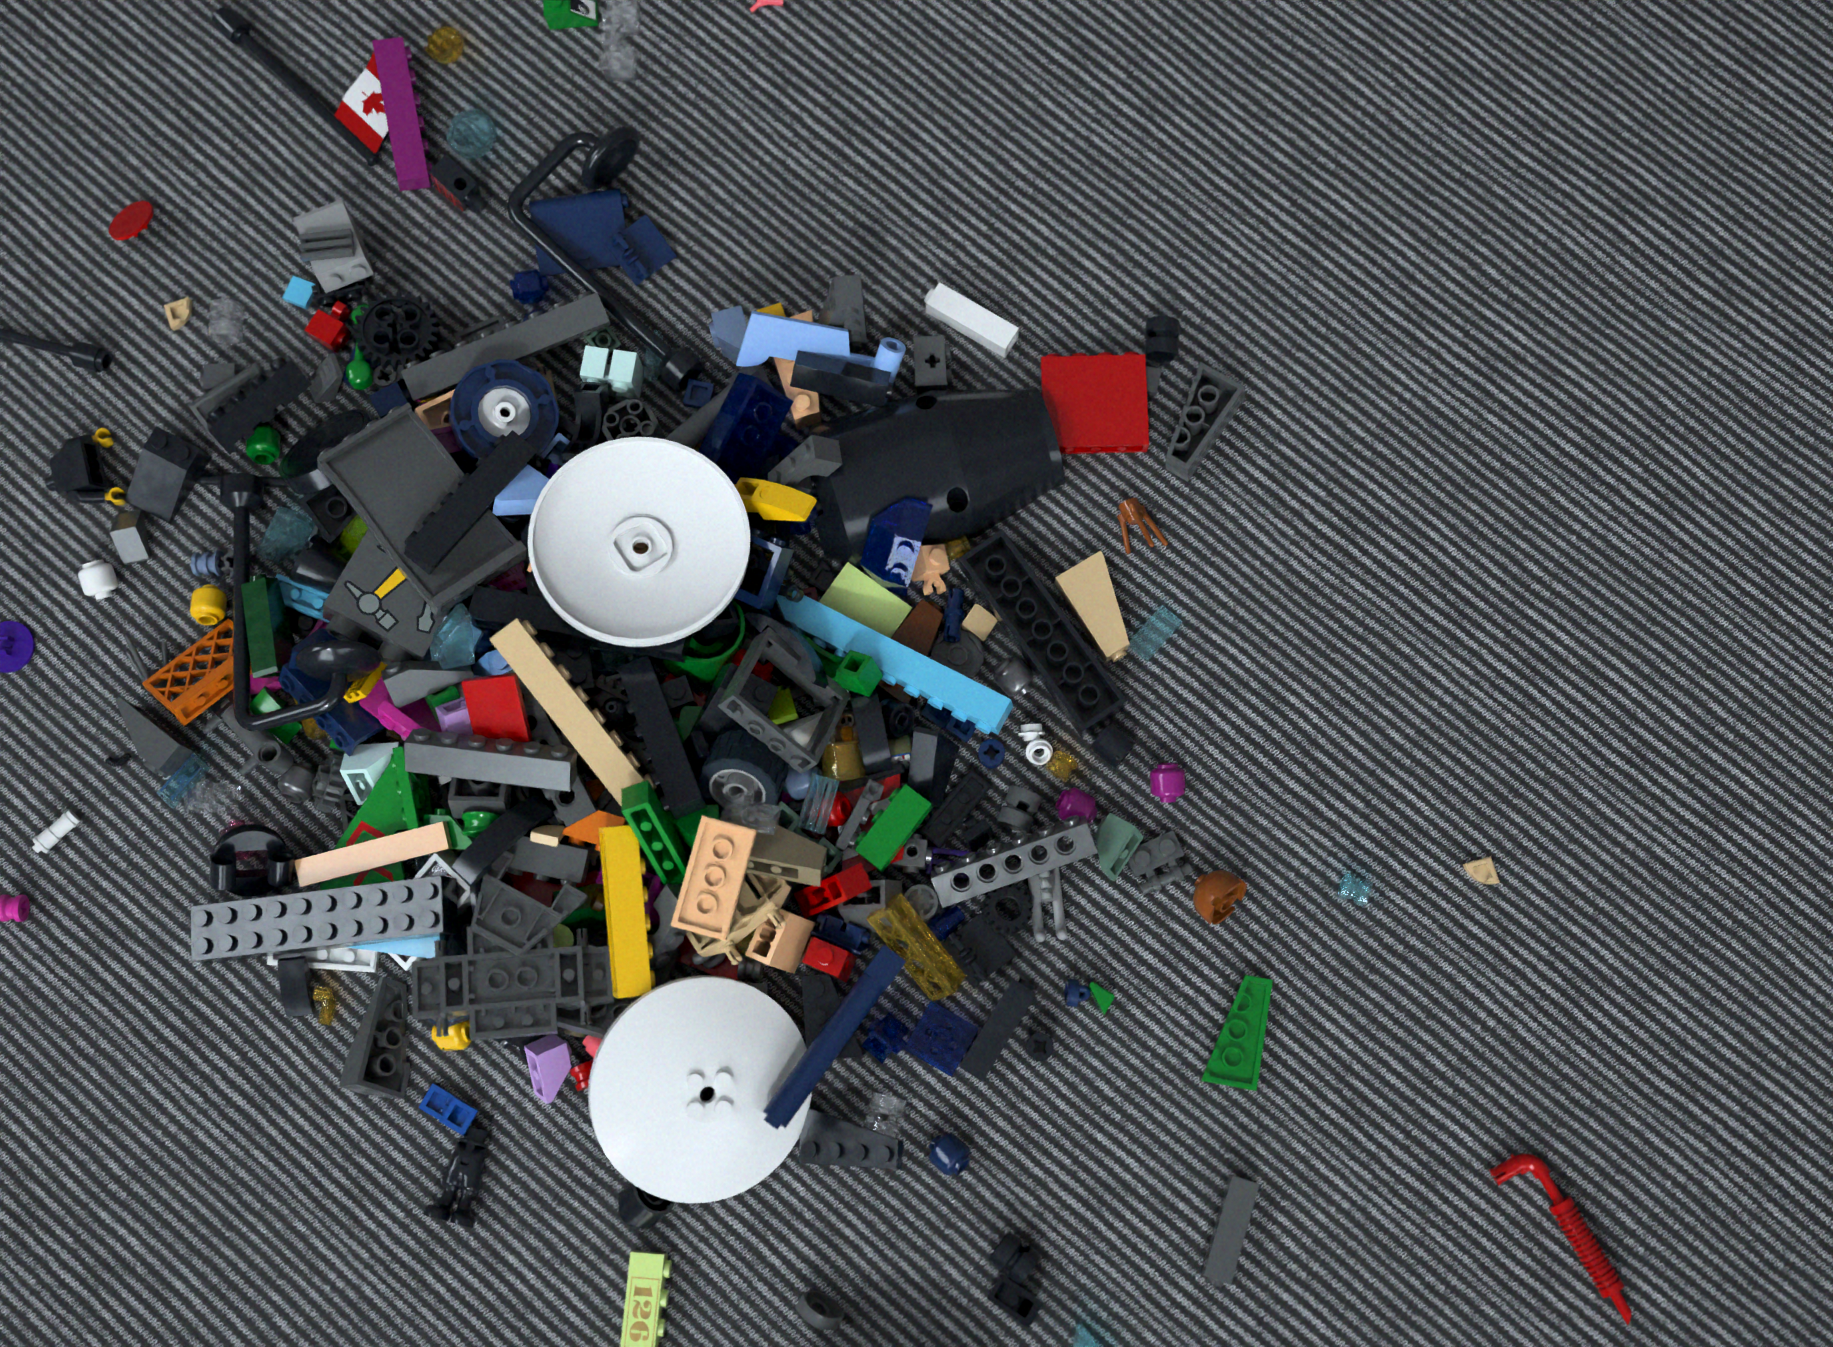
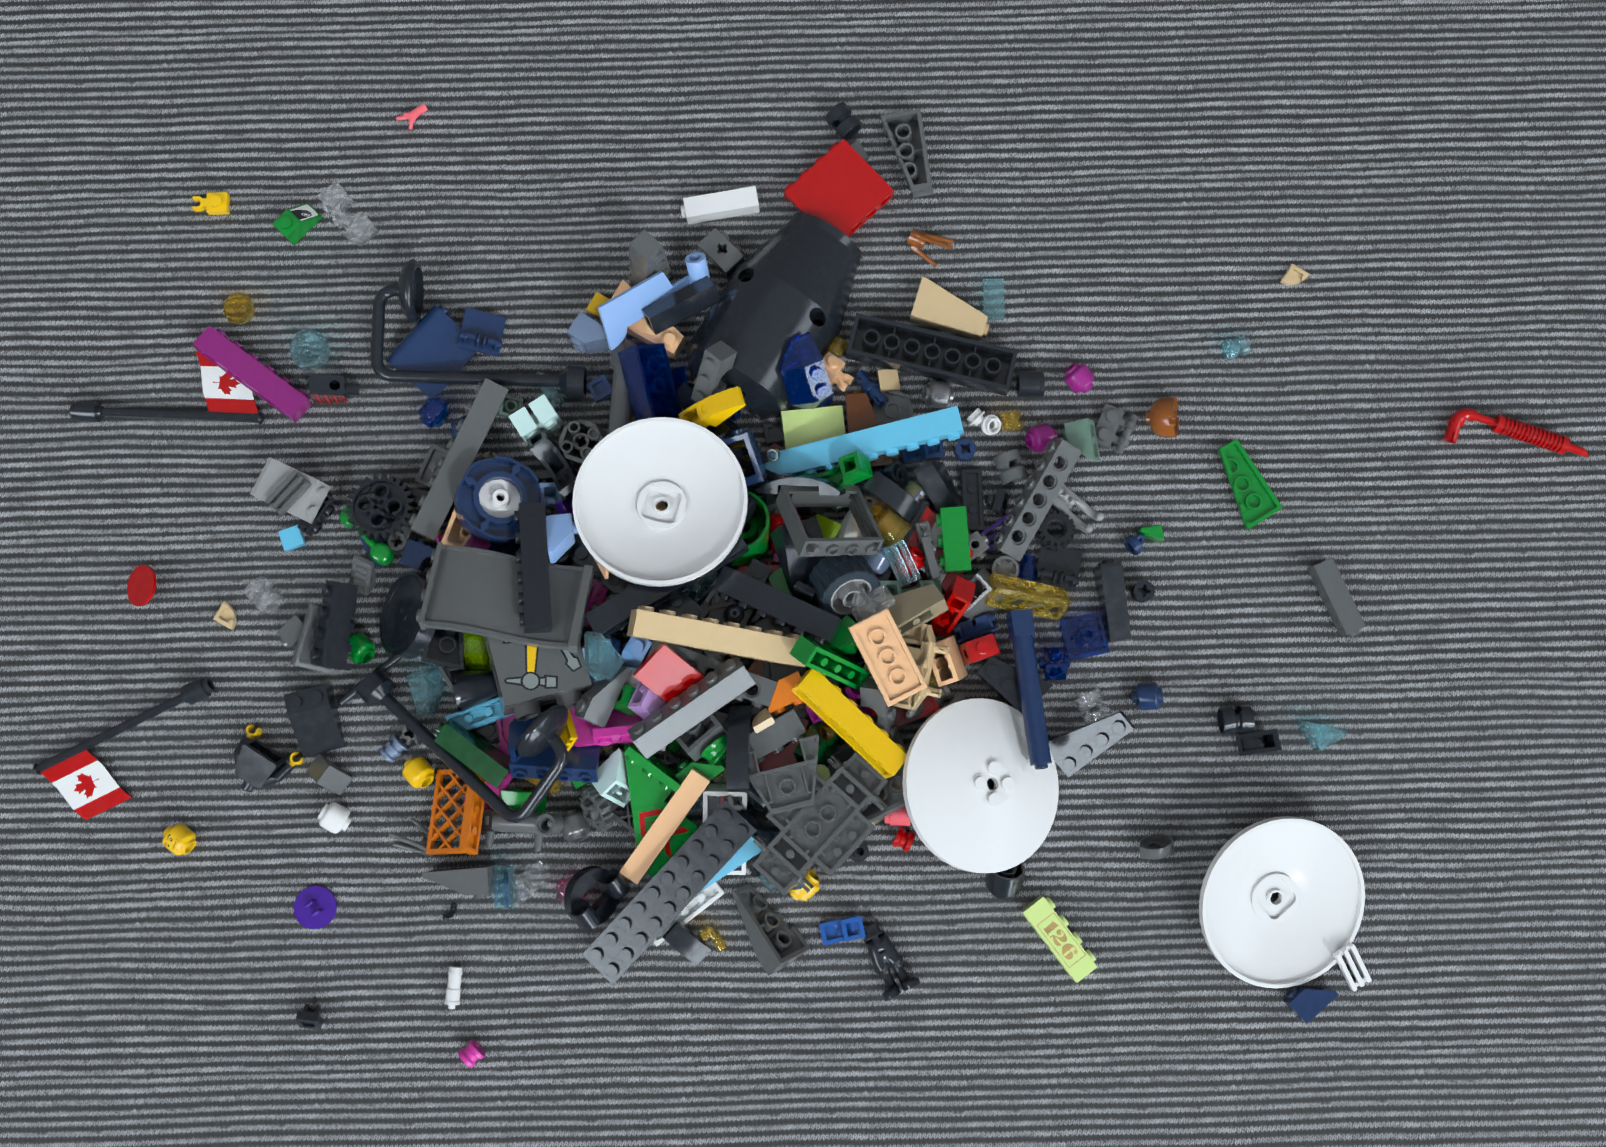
camera: 45 degrees left, 5 degrees up
(330, 329) = (333, 544): red brick -> none
(548, 1065) = (878, 854): lavender slope -> none

